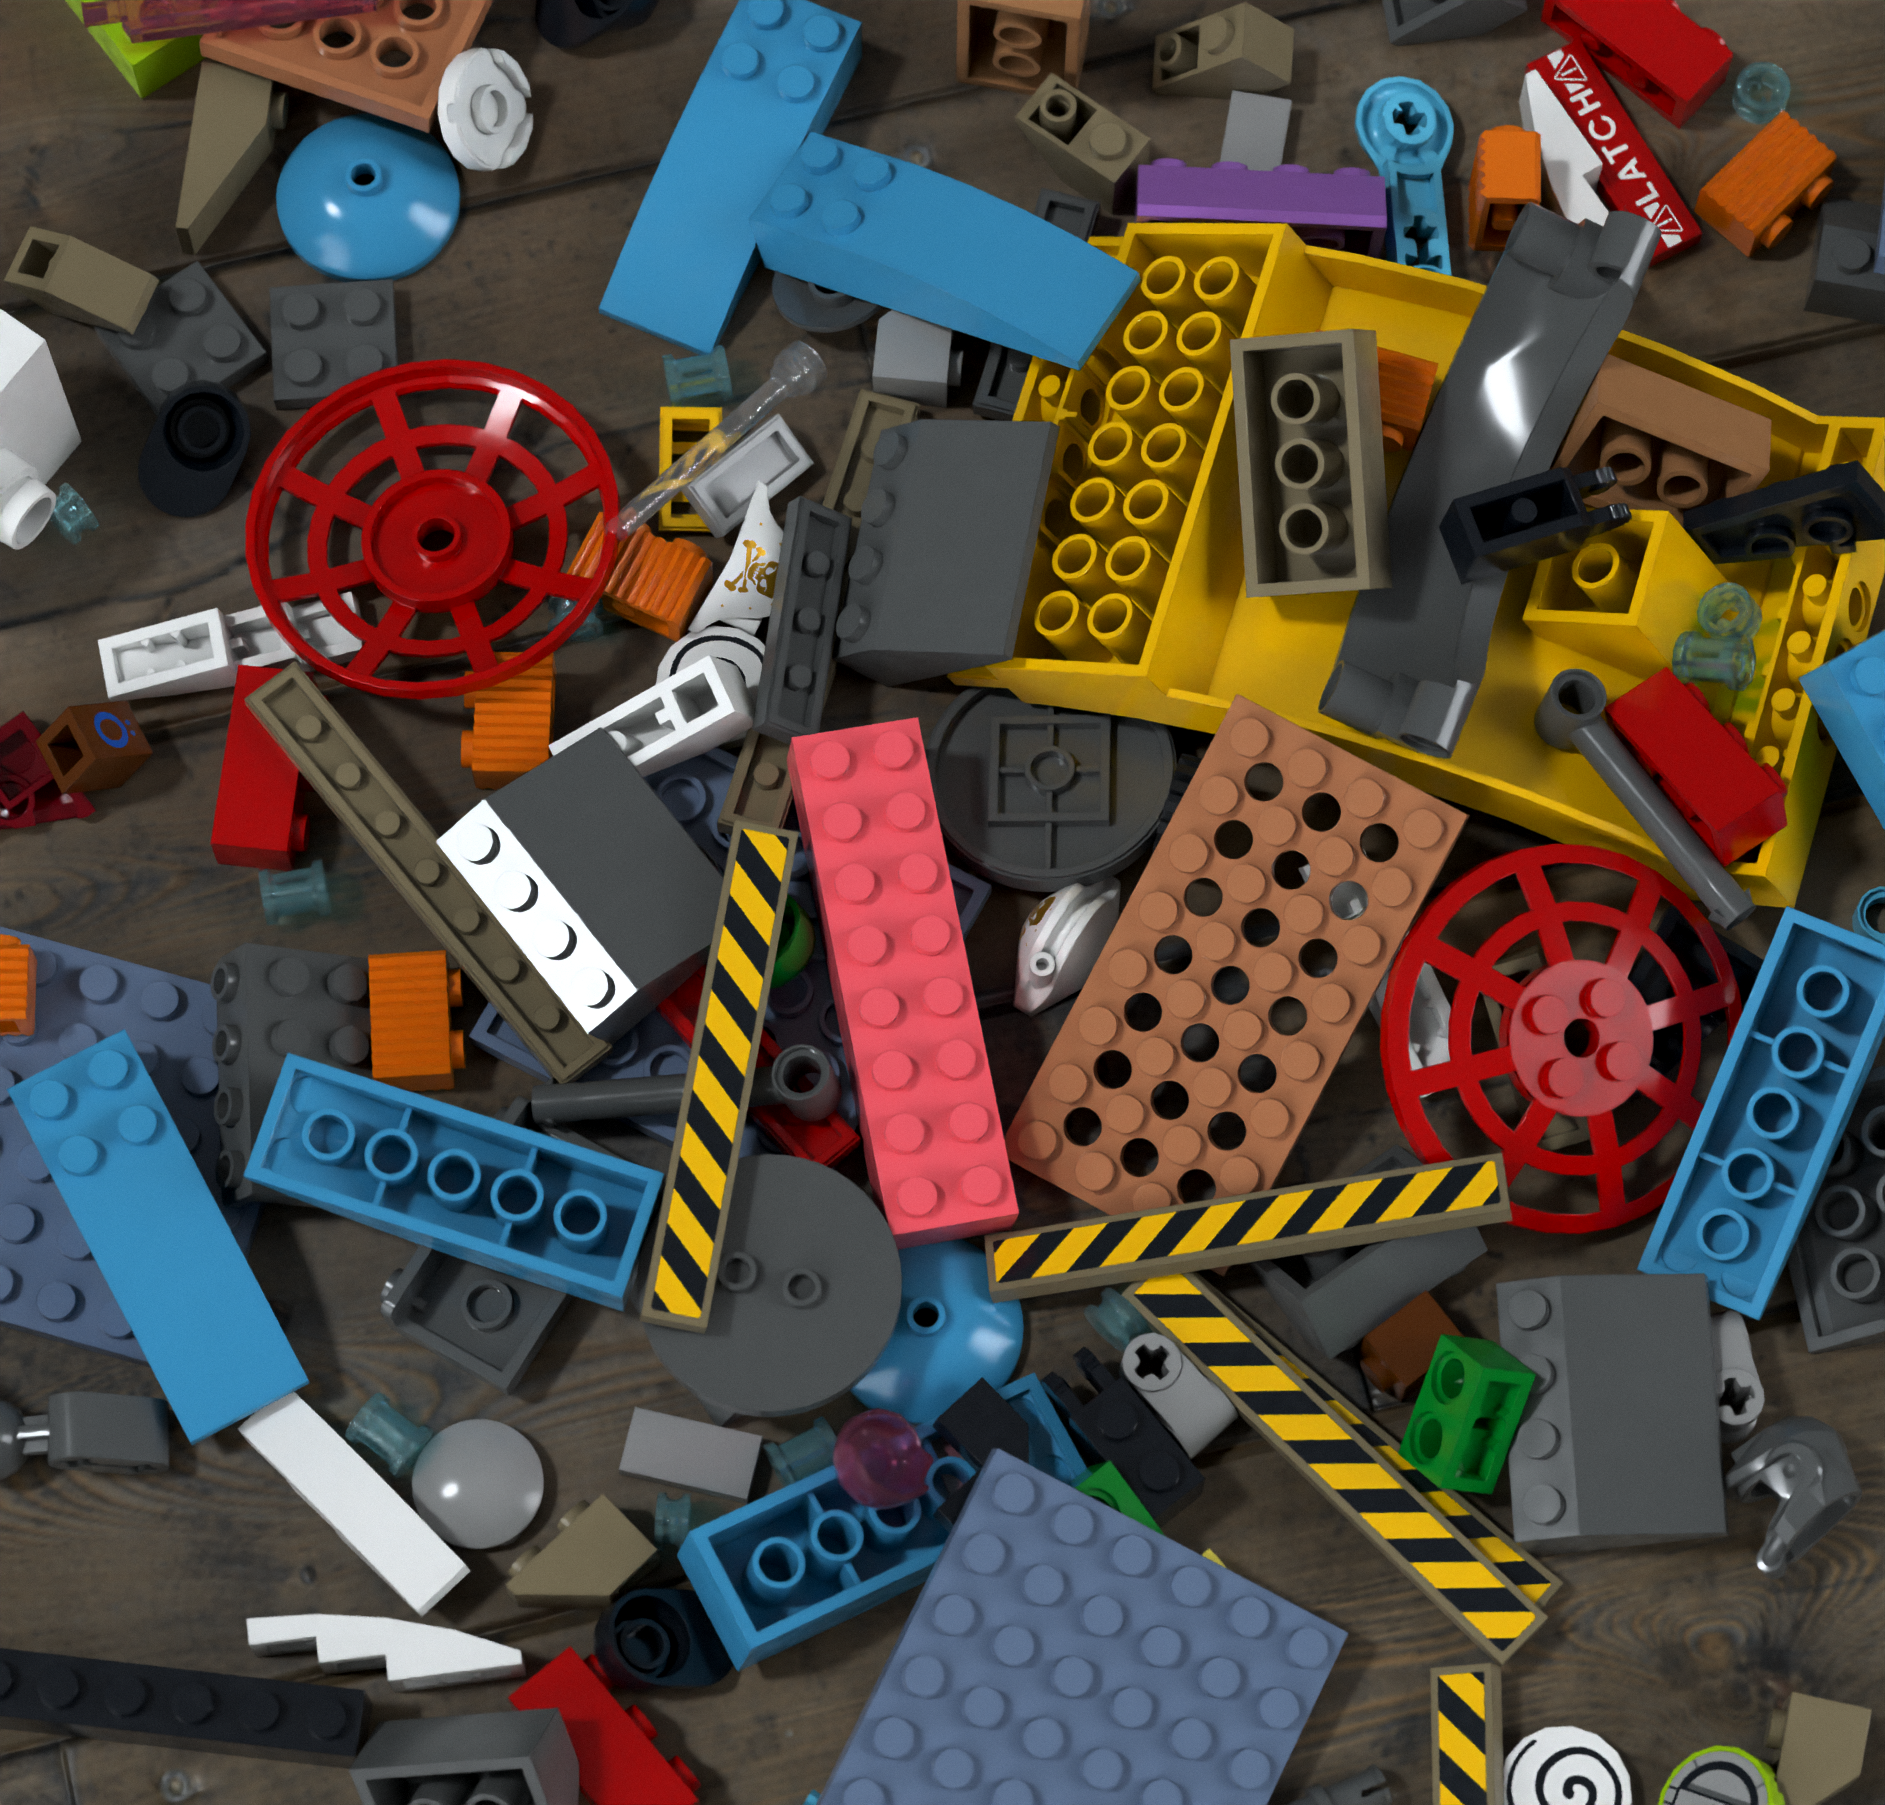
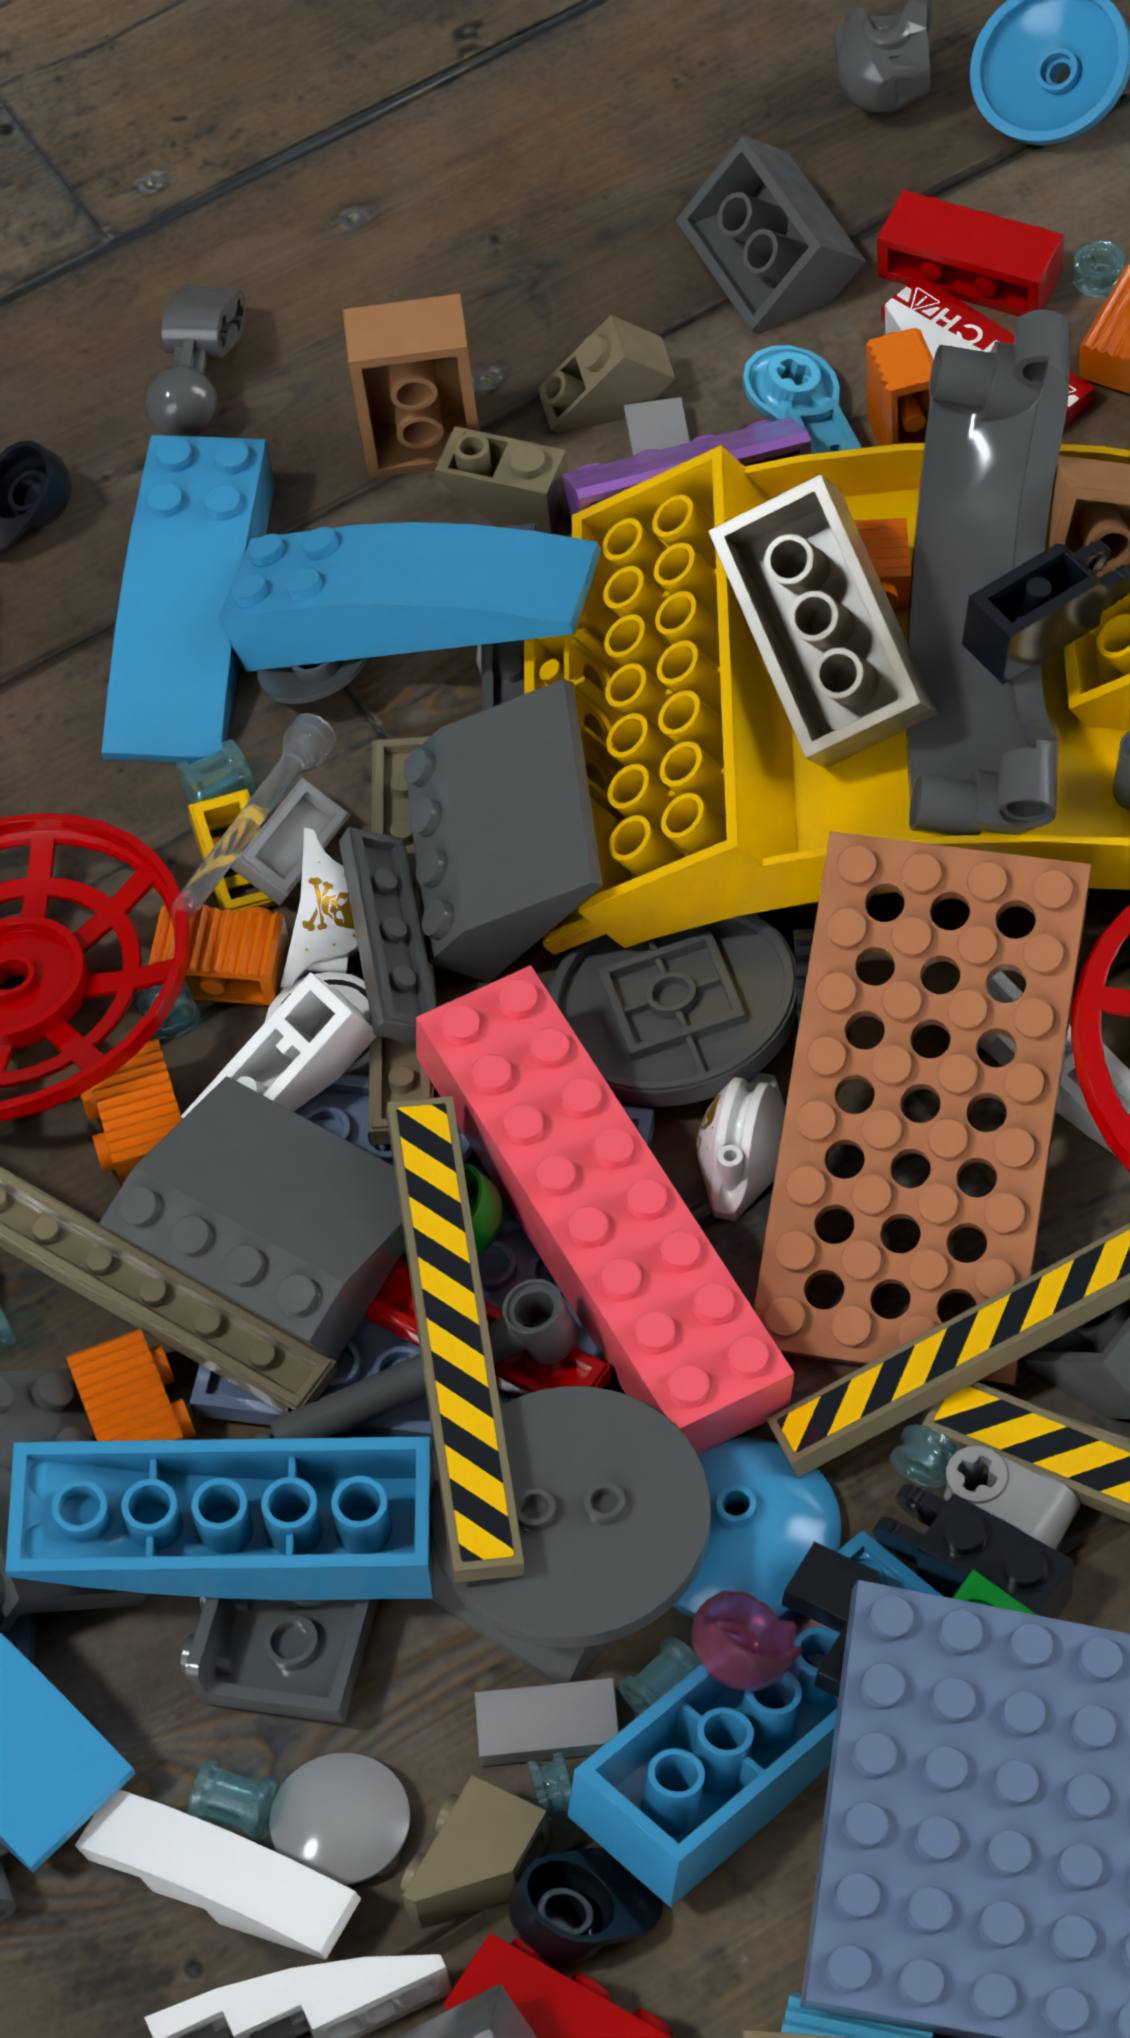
camera: 10 degrees left, 15 degrees down
(915, 360) = (414, 693): light grey slope -> none

